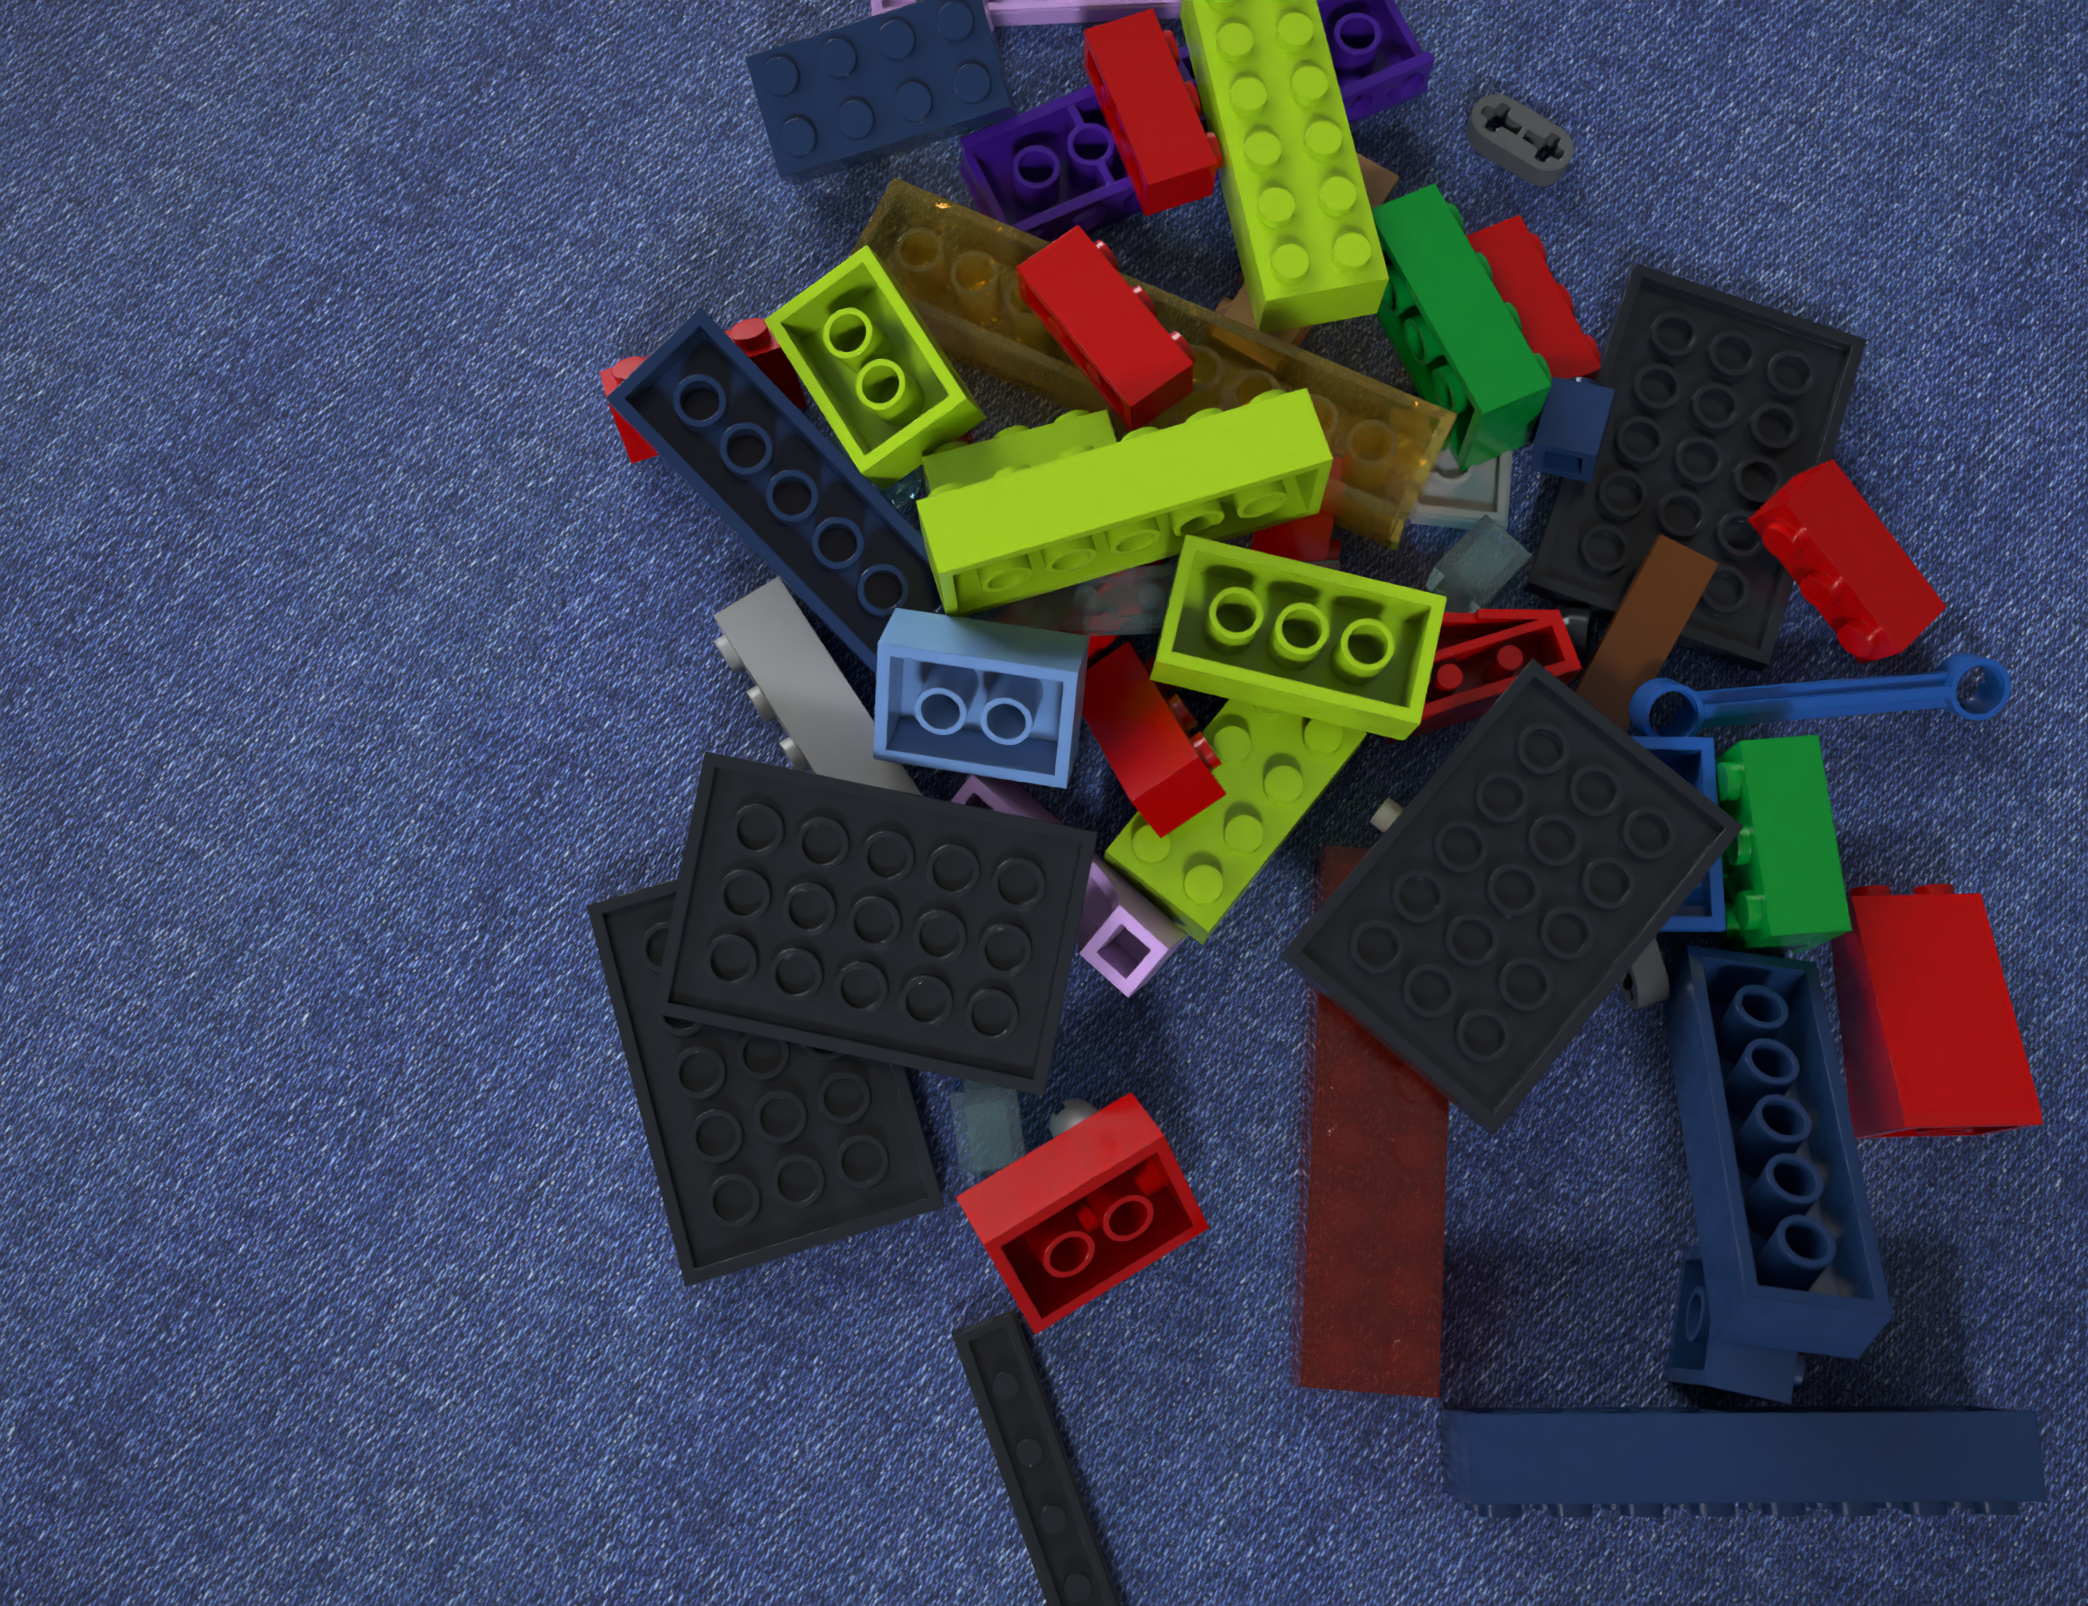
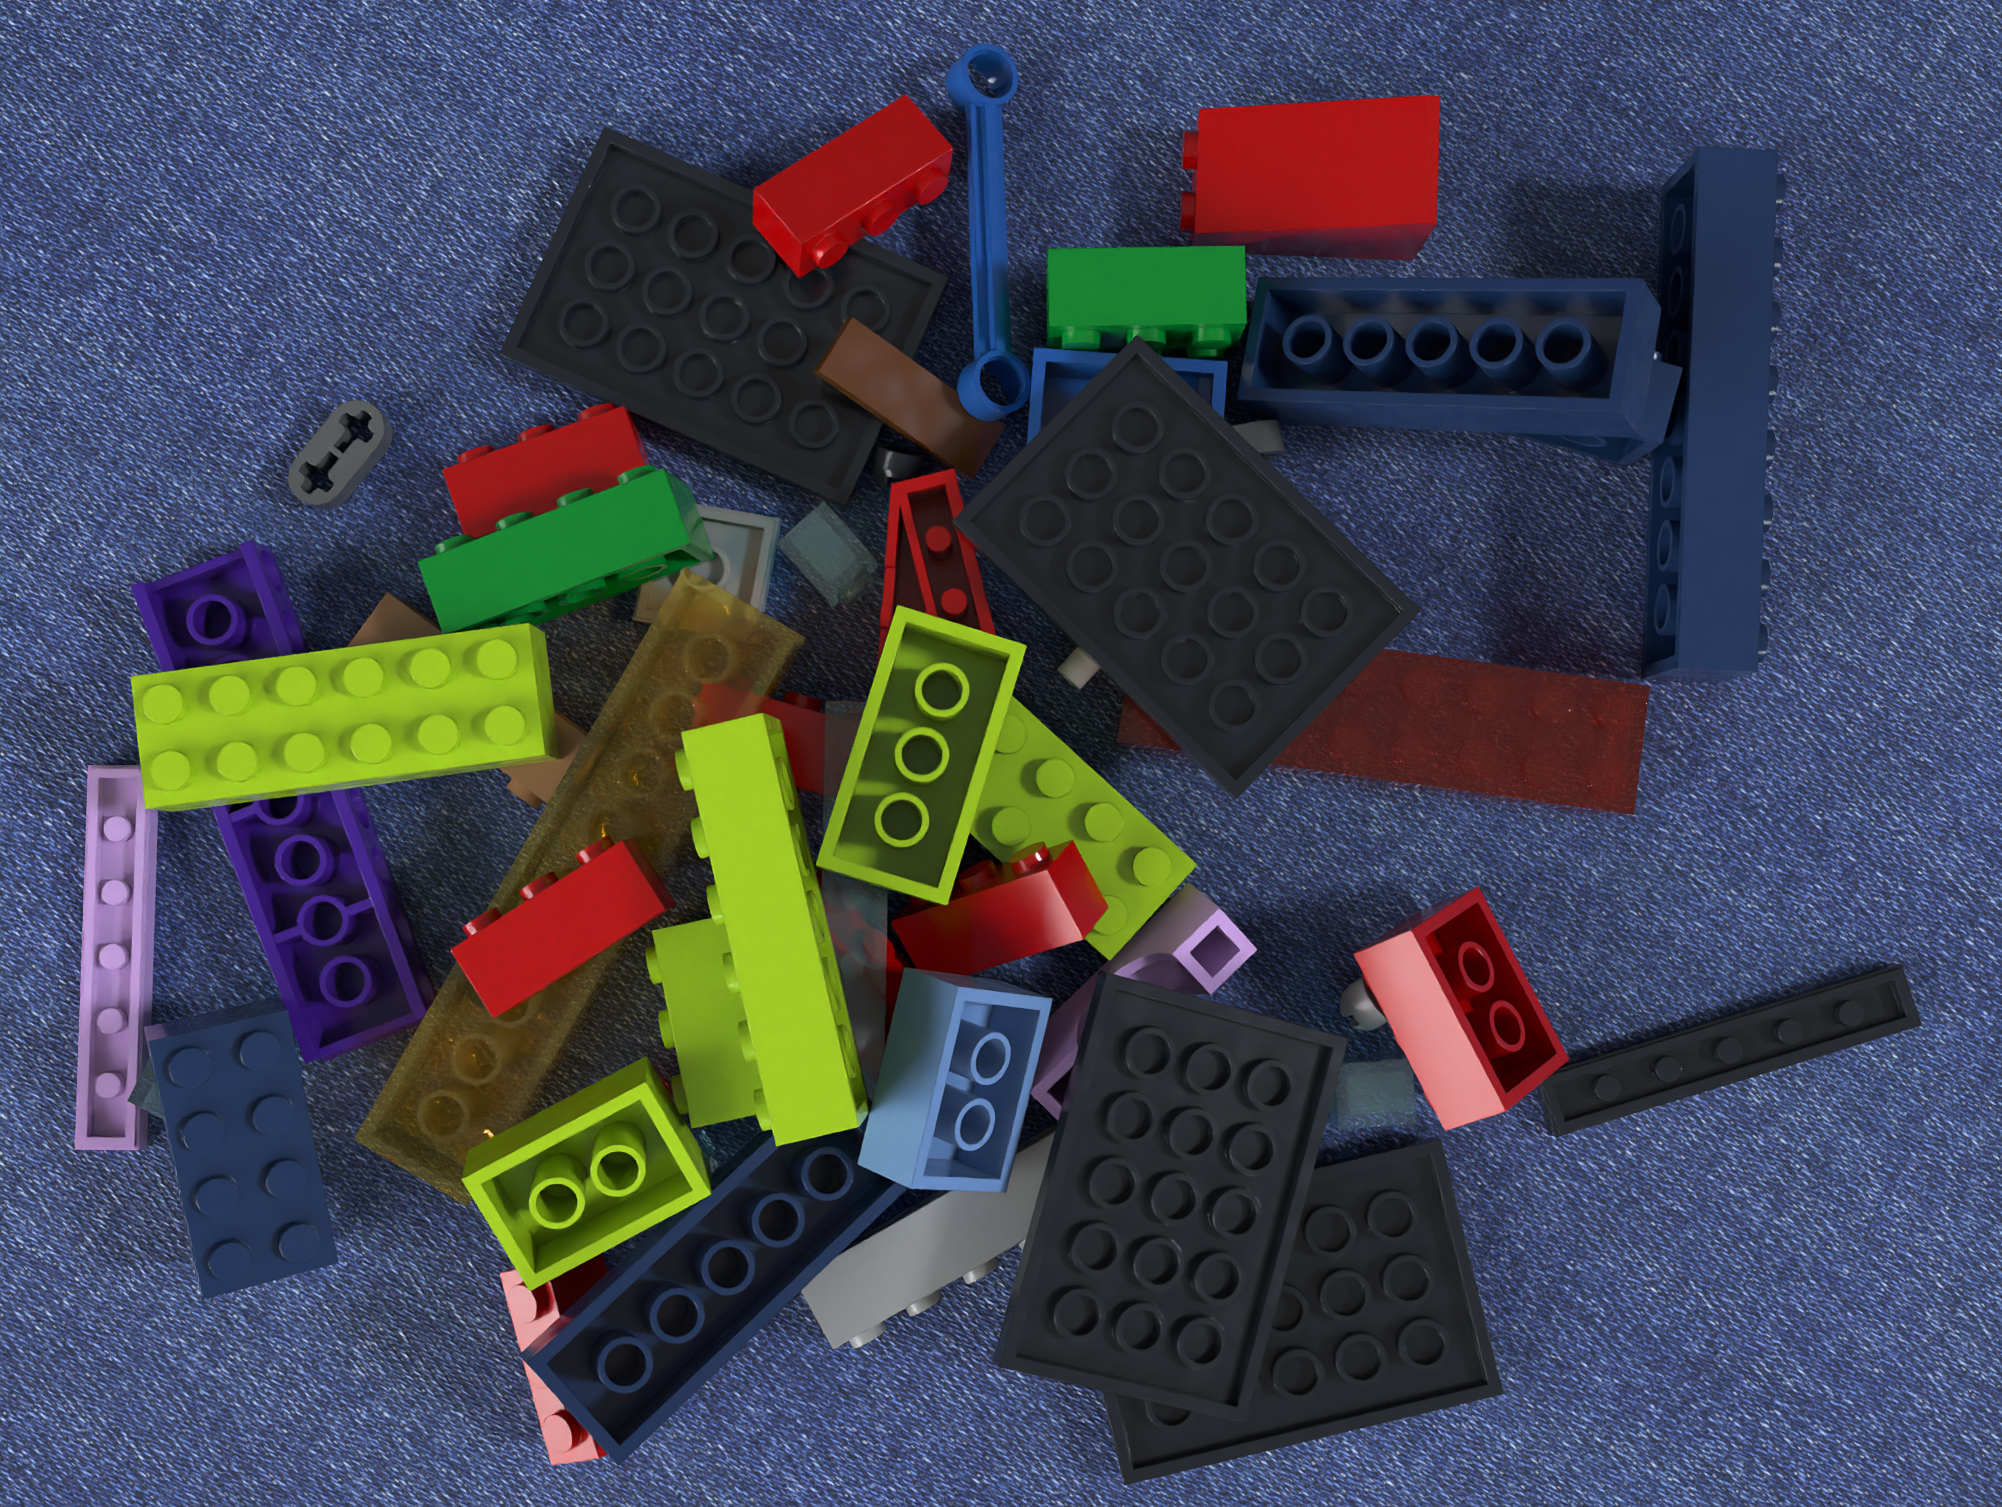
camera: 85 degrees left, 10 degrees up
(1151, 111) = (297, 854): red brick -> none
(1572, 428) = (689, 443): dark blue brick -> none

